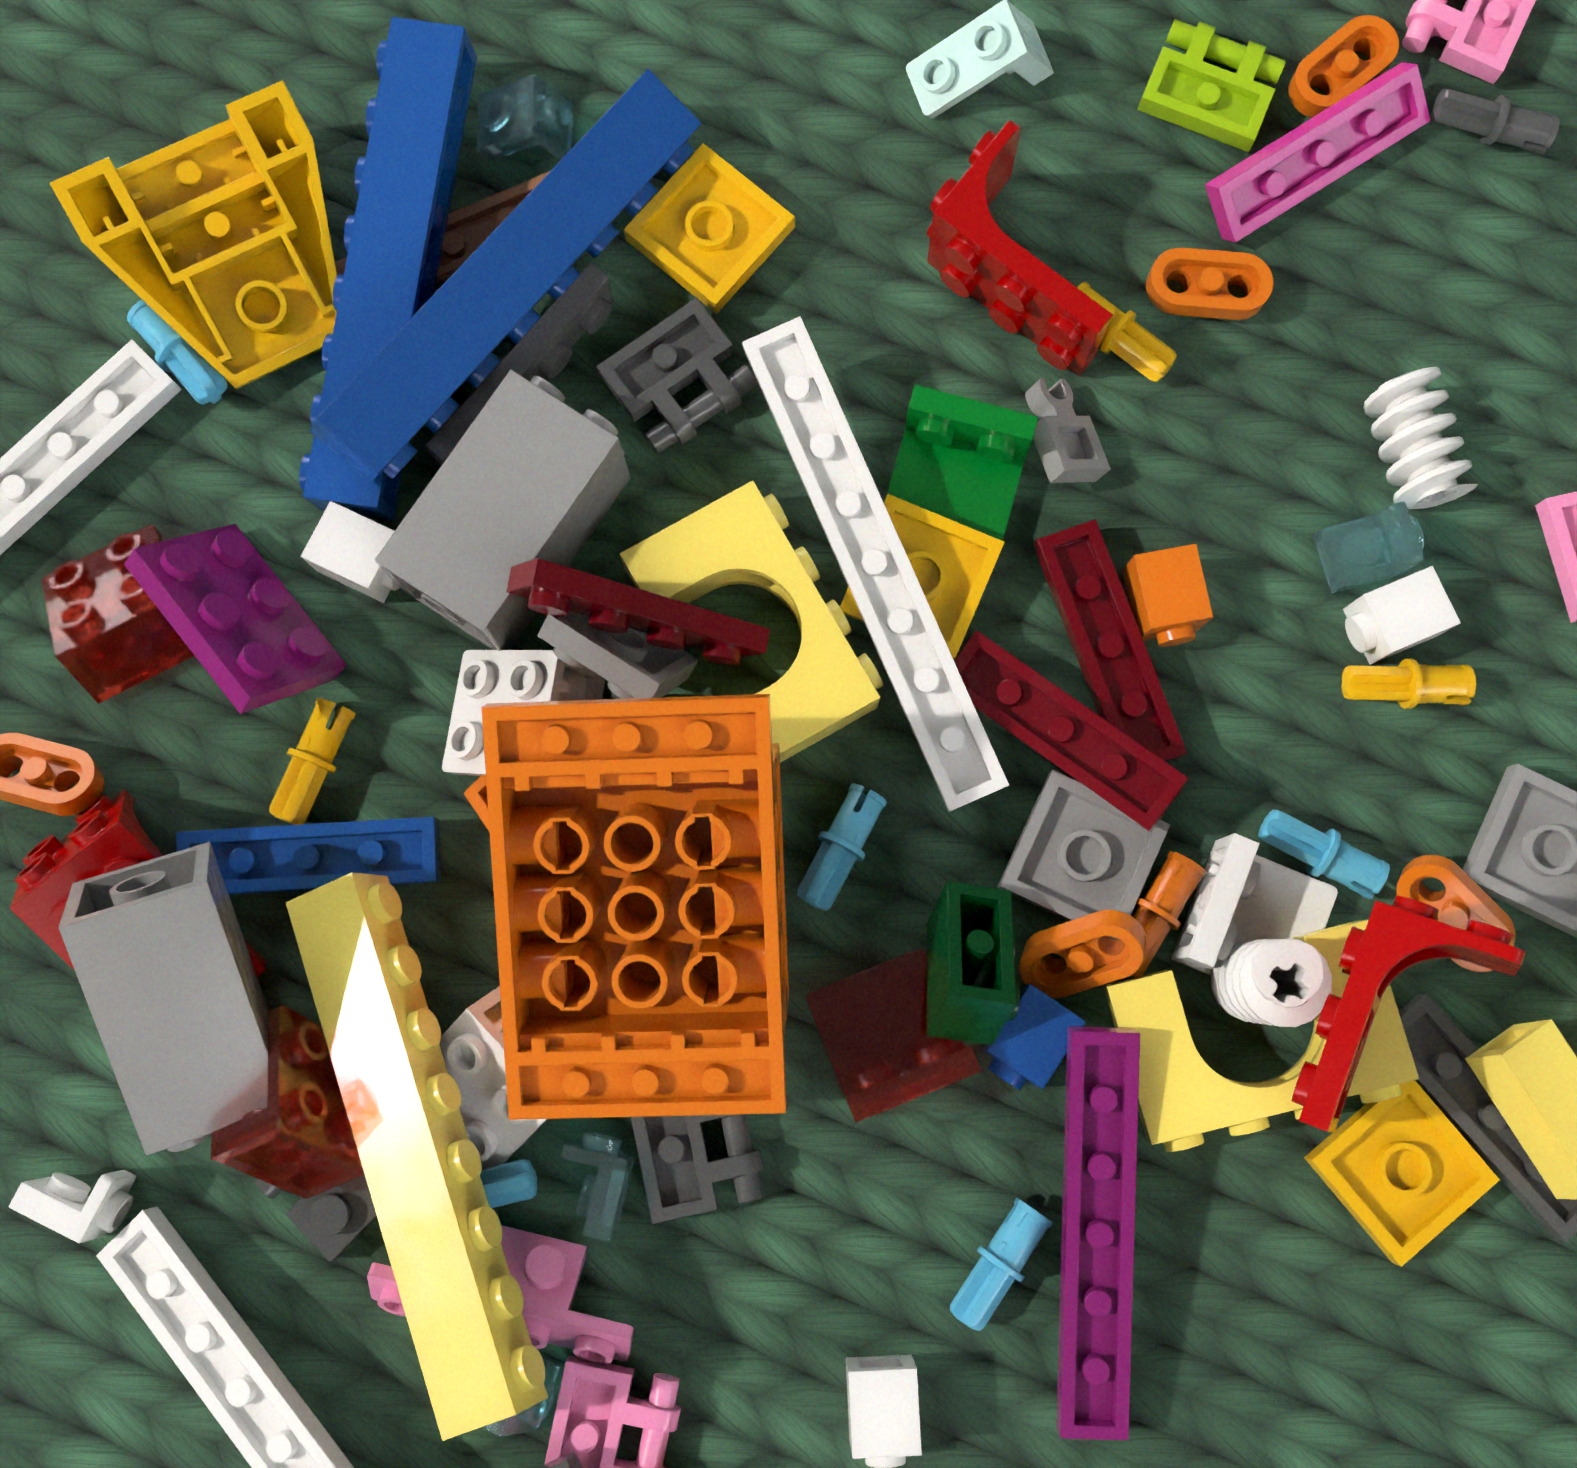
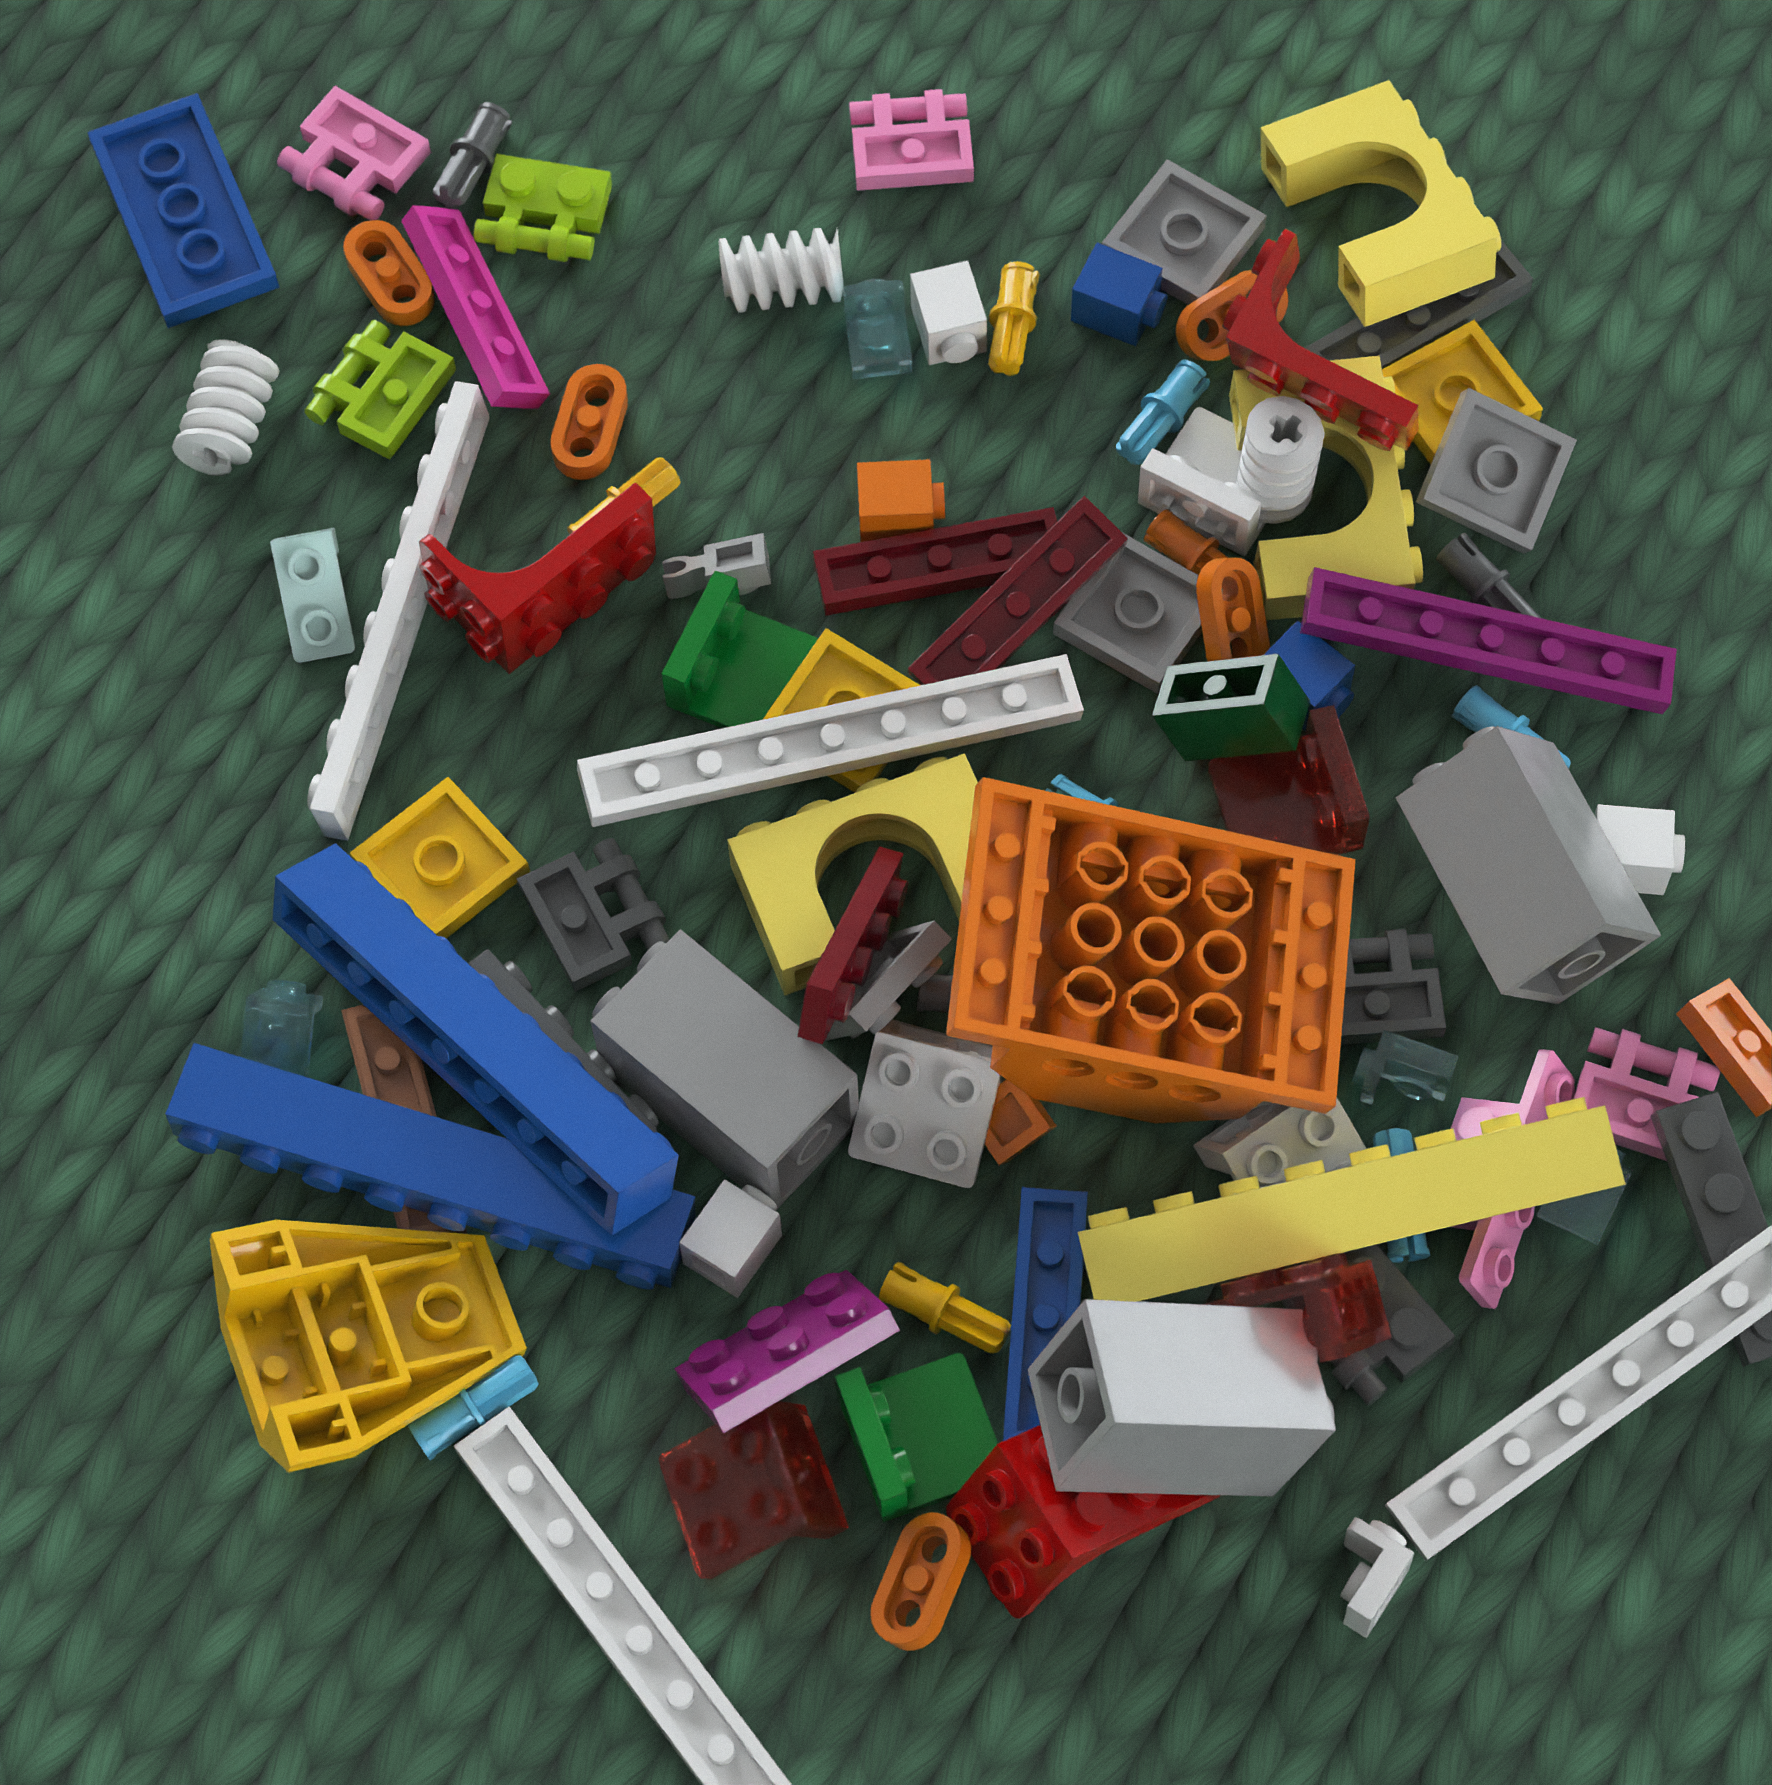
camera: 80 degrees left, 15 degrees down
(179, 750) = (916, 1432): none -> green bracket
(821, 1300) = (1526, 865): none -> light grey brick
(947, 139) = (394, 627): none -> white plate
(1175, 1223) = (1481, 577): none -> dark grey axle
(1311, 1222) = (1496, 471): none -> light grey plate
(1457, 789) = (1118, 295): none -> blue brick
(1466, 201) = (546, 195): none -> lime plate

